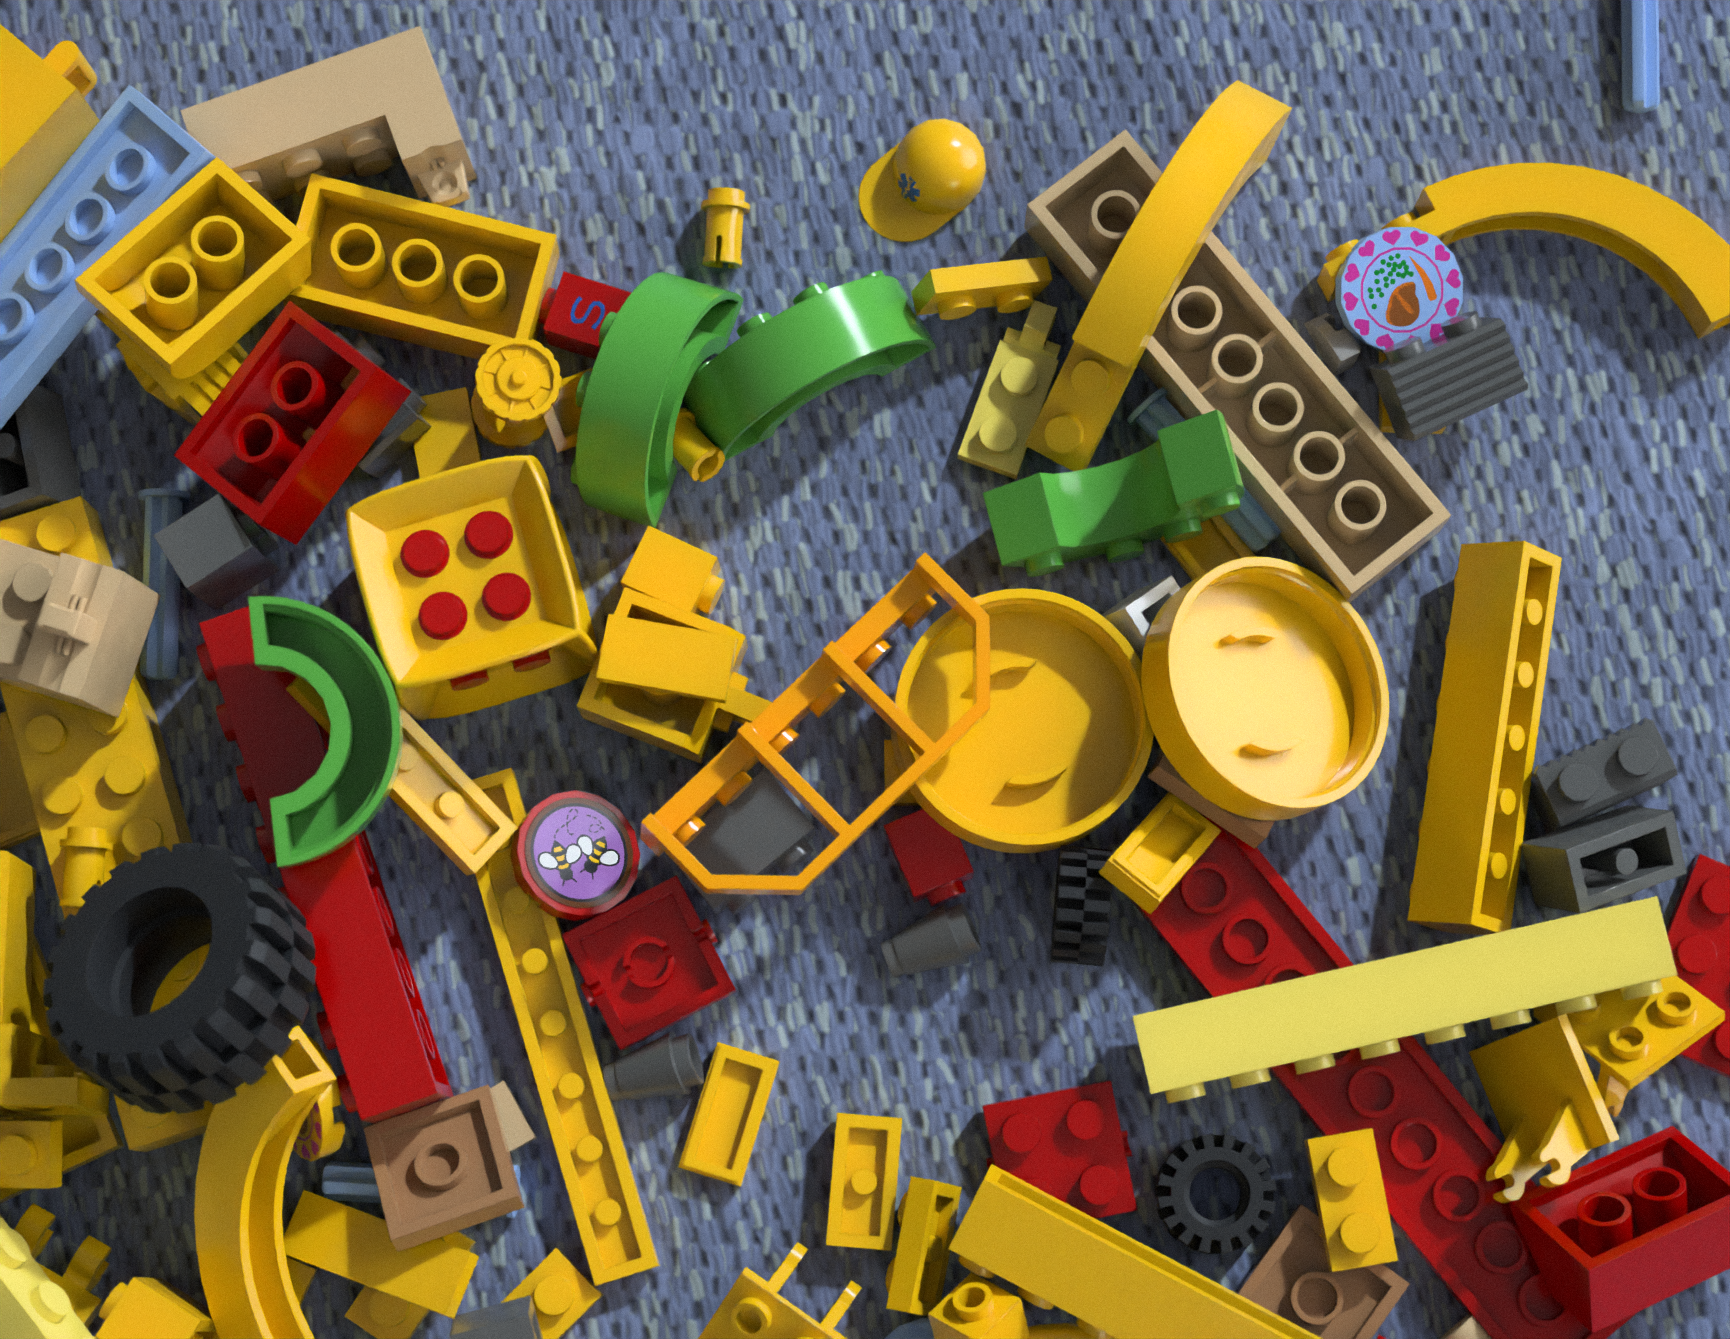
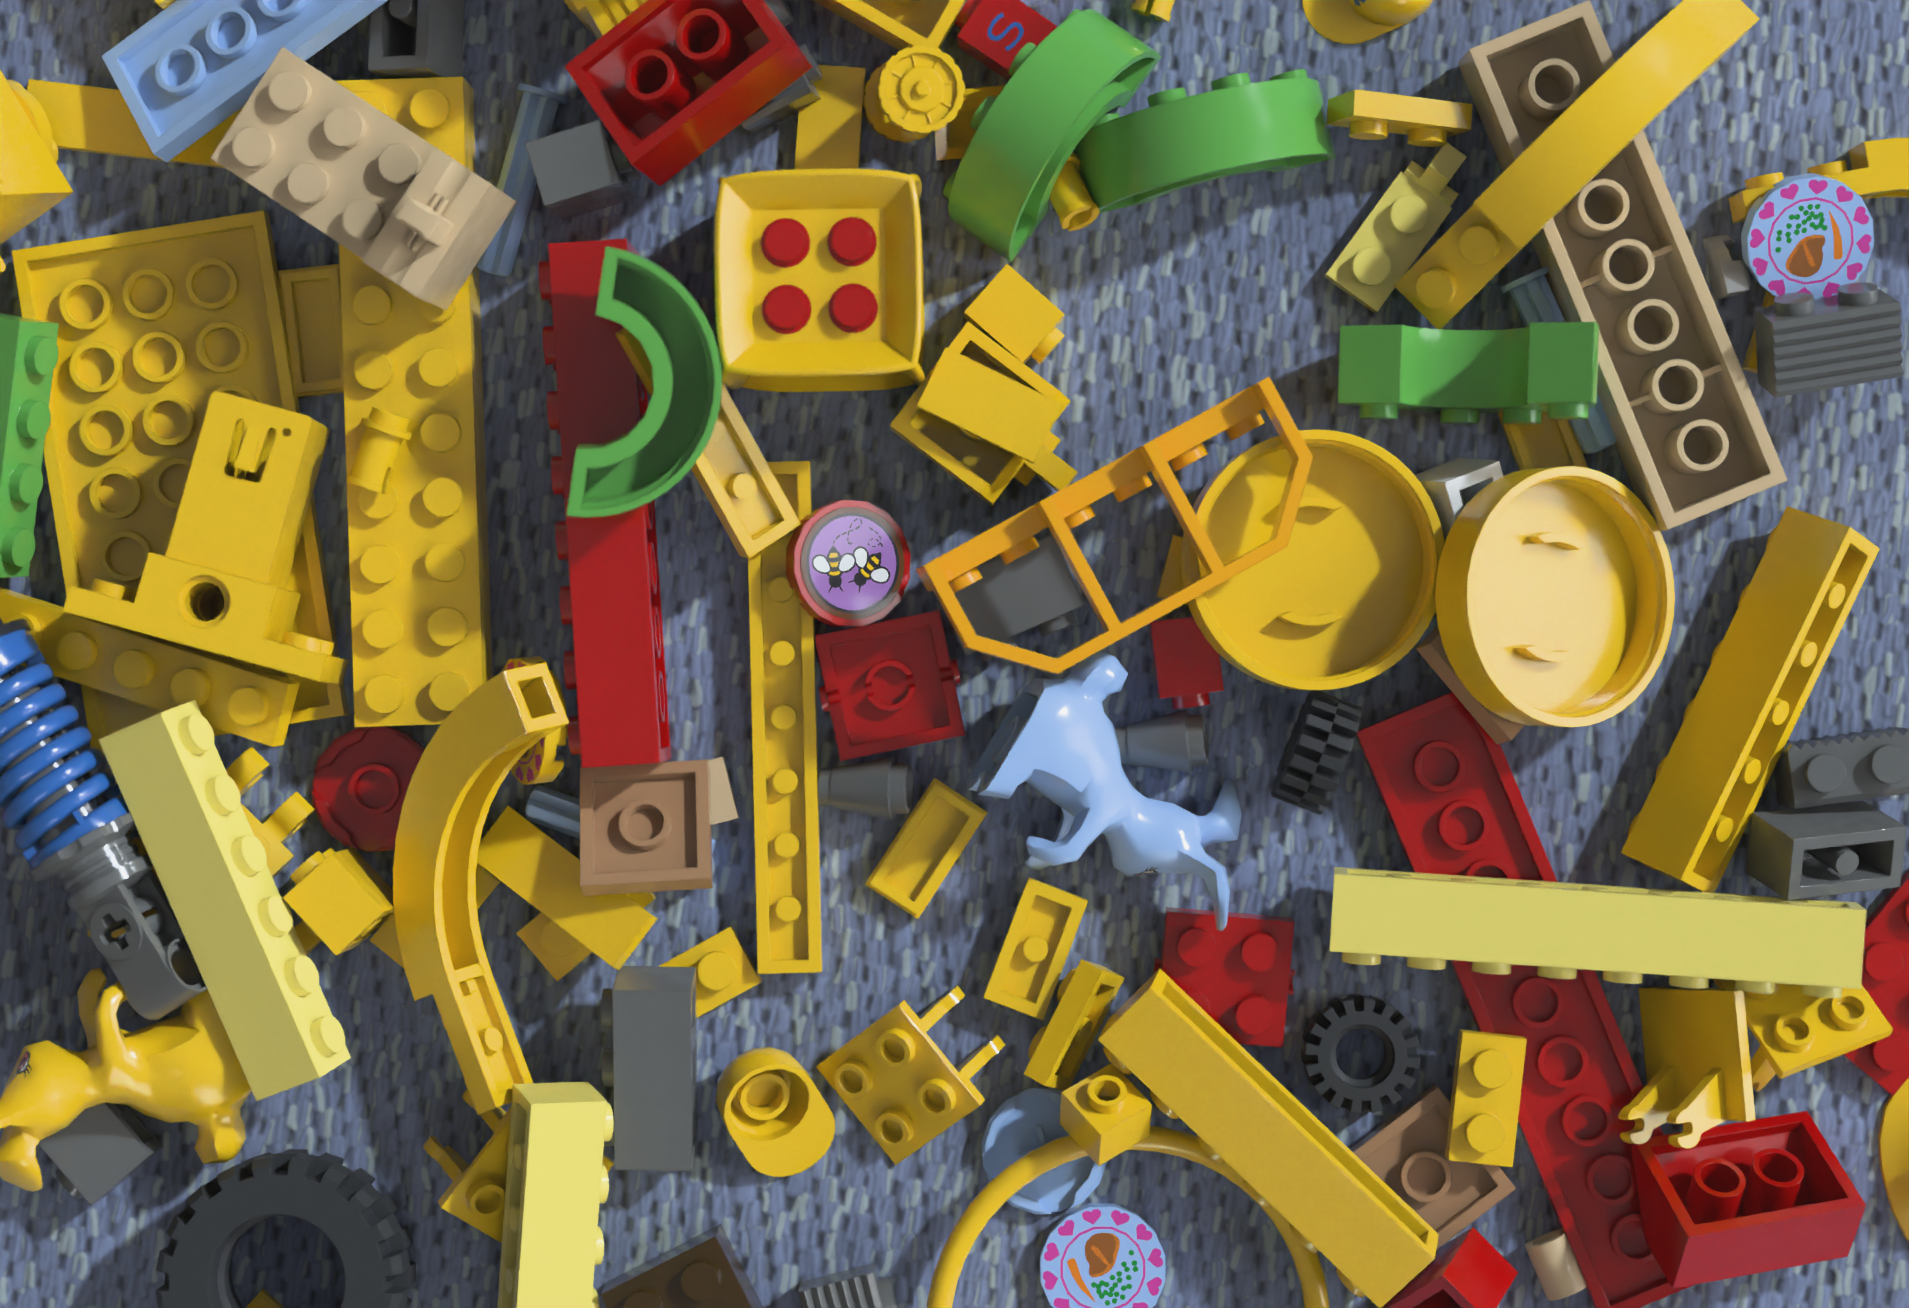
camera: 15 degrees right, 10 degrees up
(127, 1217) = (391, 761): none -> red tile
(228, 1016) = (406, 538): black tyre -> none
(843, 977) = (1071, 755): none -> light blue animal
(1159, 852) = (1406, 726): yellow tile -> none

